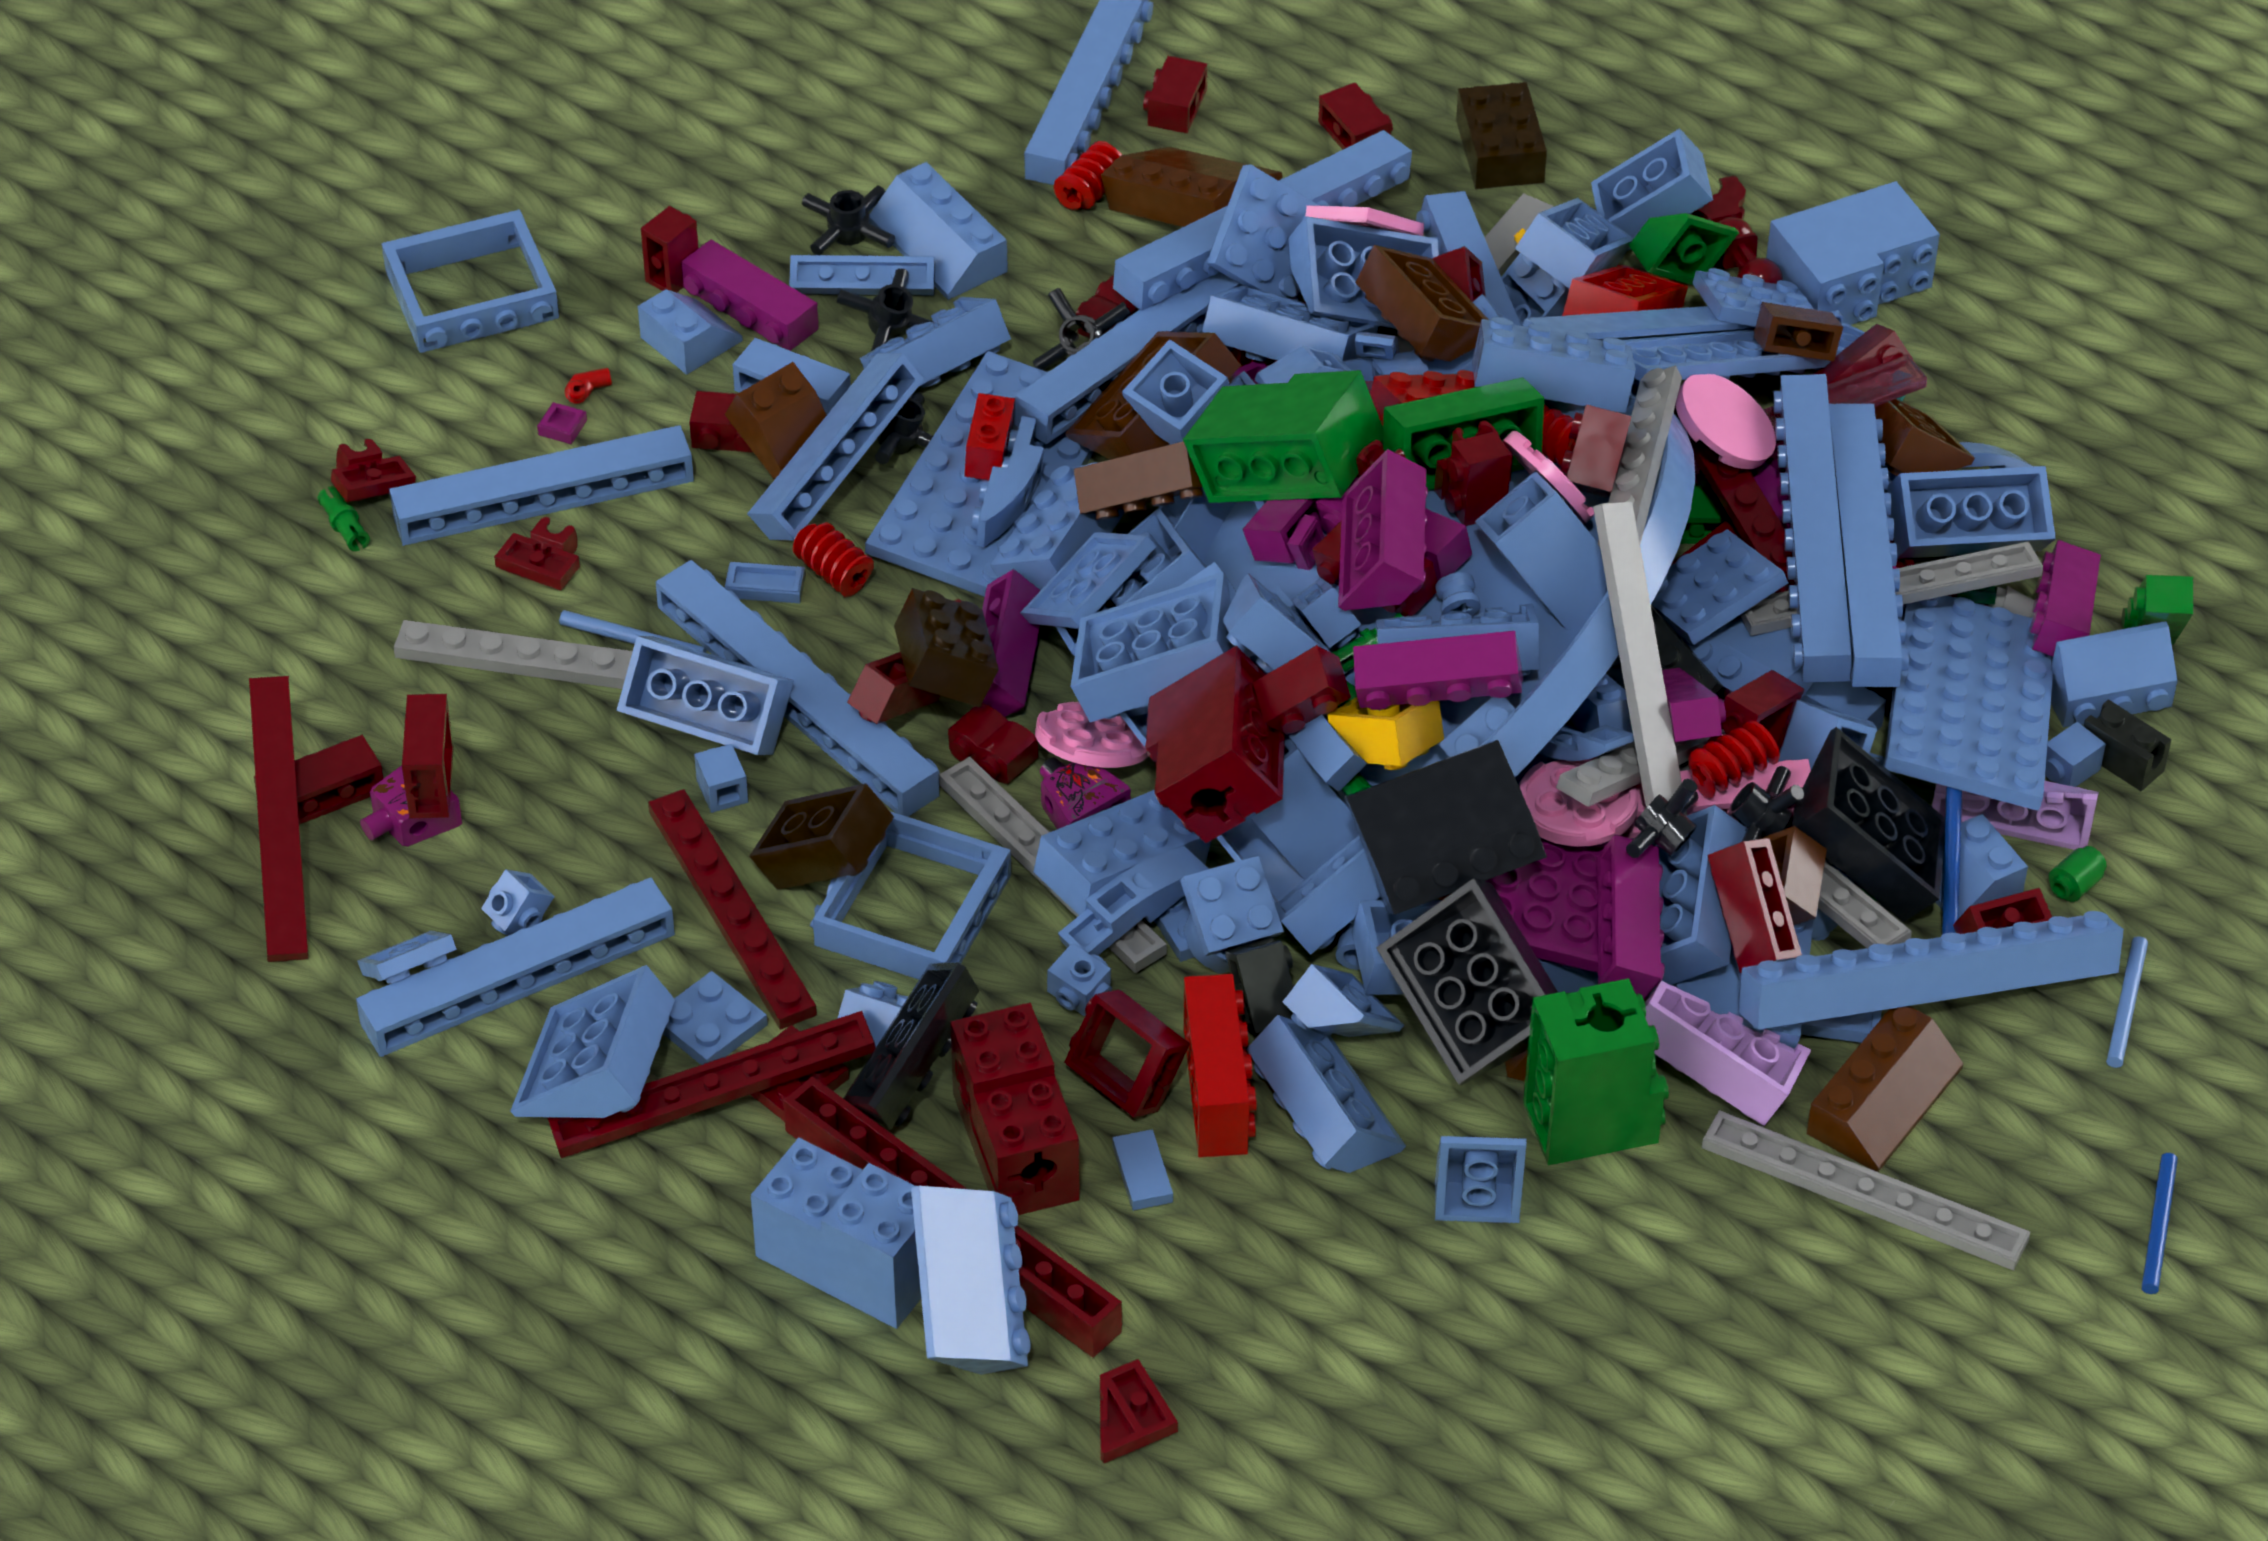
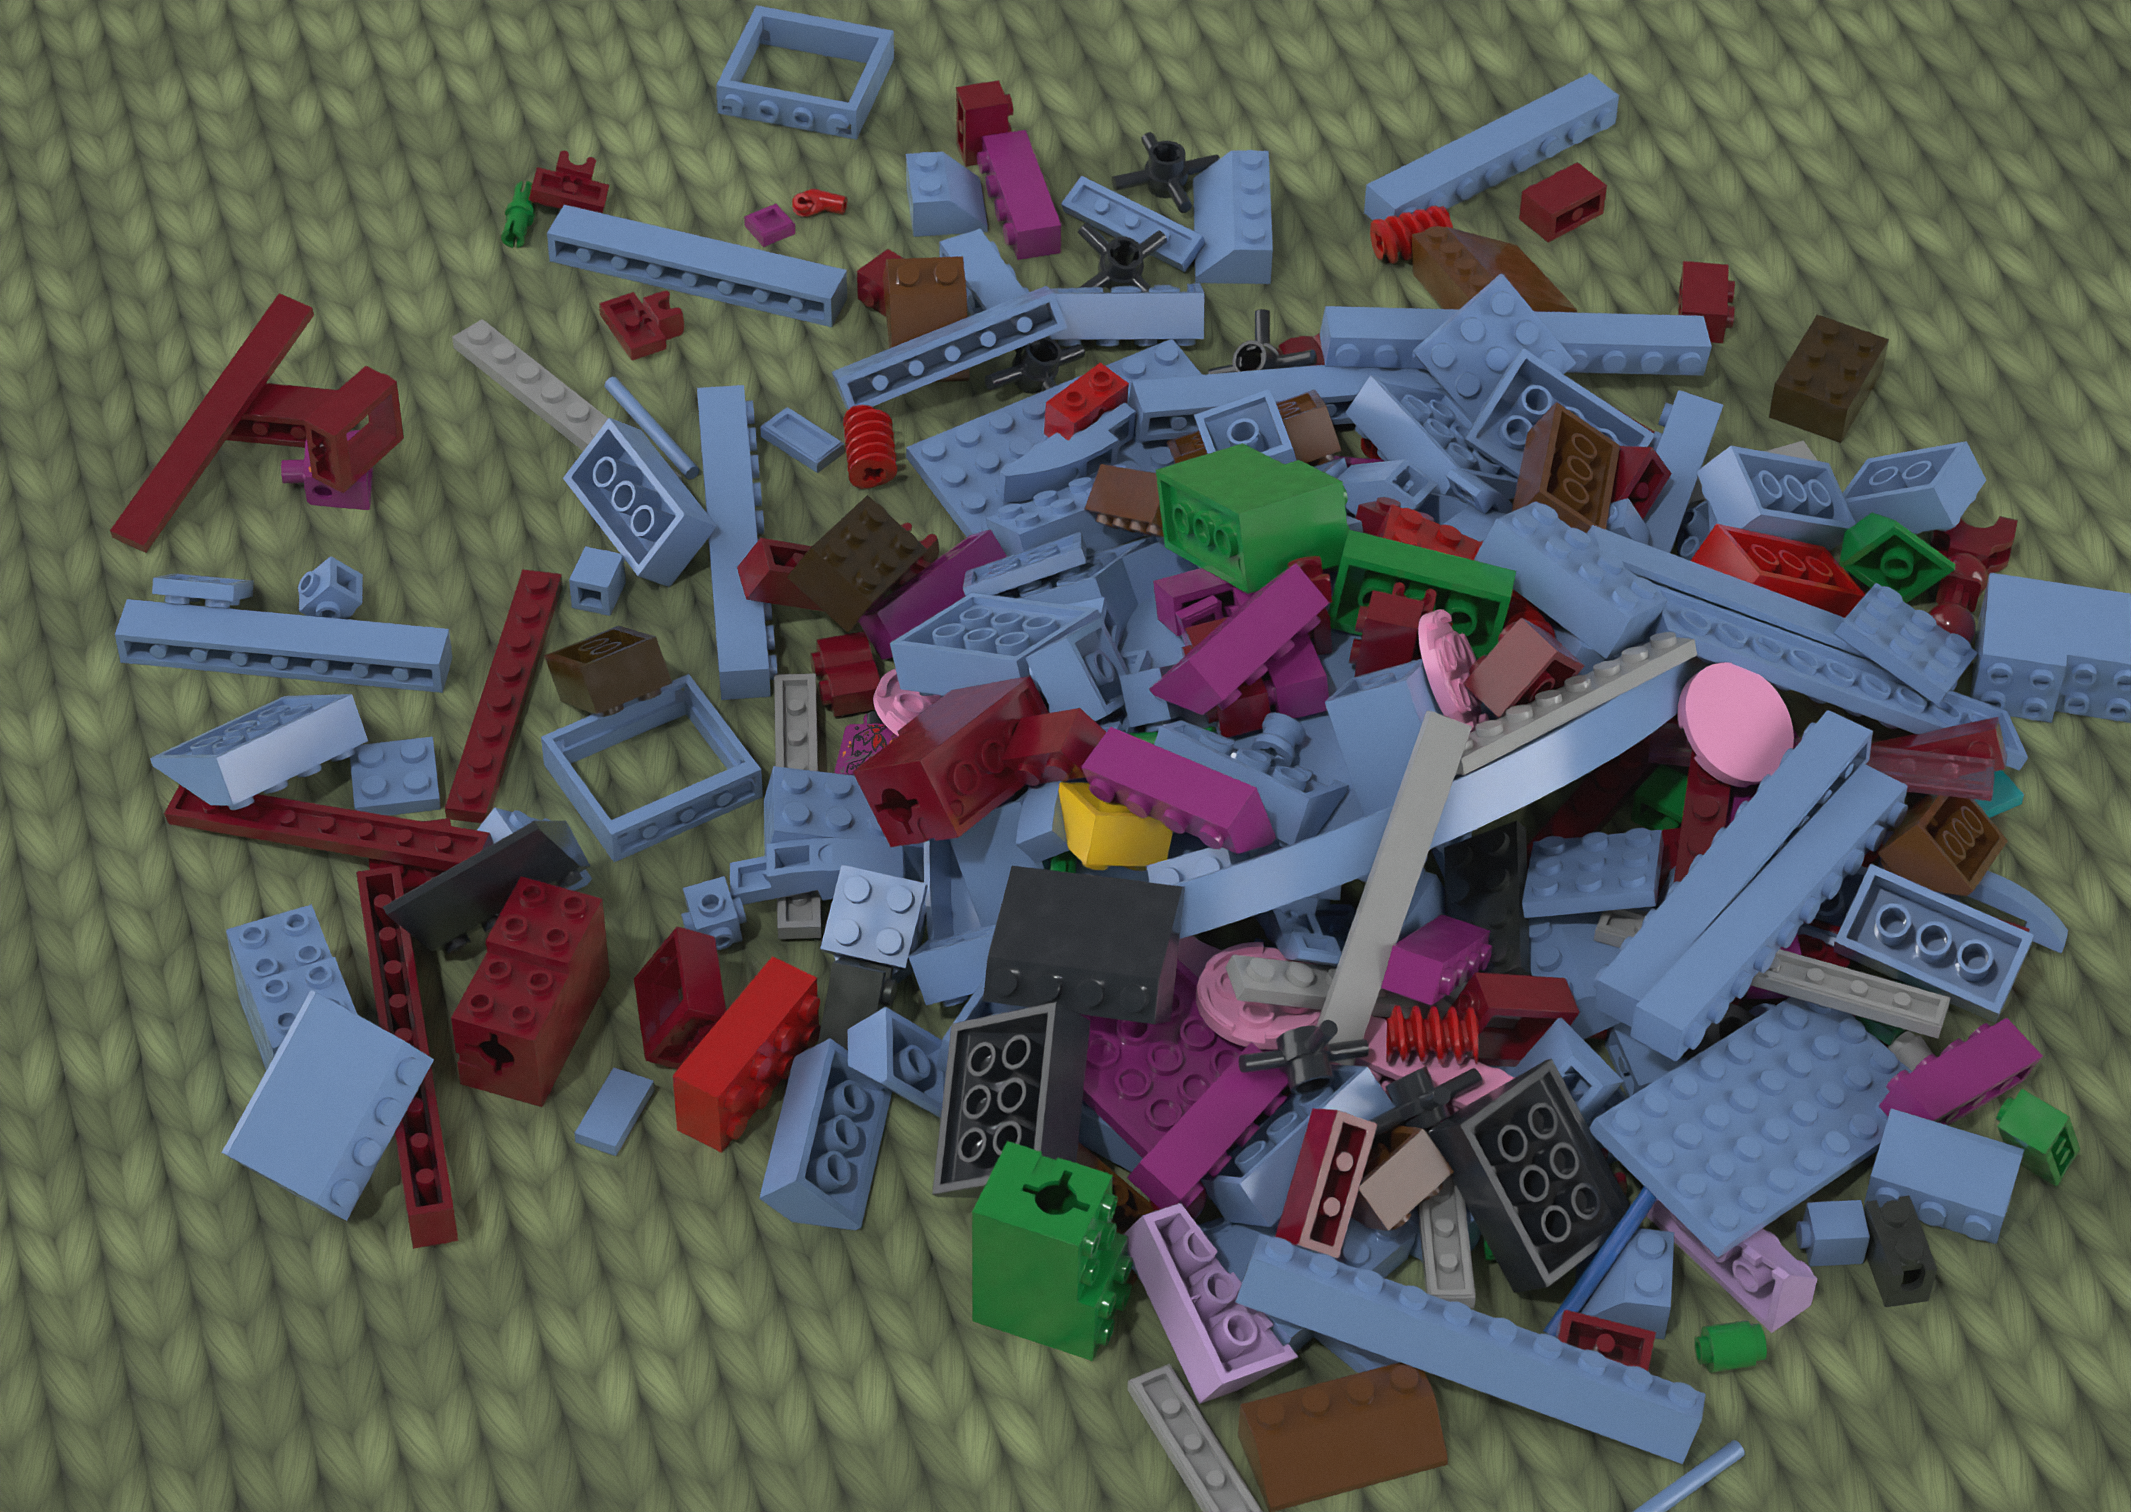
camera: 35 degrees right, 0 degrees up
(1131, 1411) = (391, 1314): dark red wing -> none
(1366, 217) = (1596, 385): bright pink tile -> none
(1479, 1179) = (871, 1292): medium blue slope -> none
(1798, 331) = (1901, 682): reddish brown brick -> none

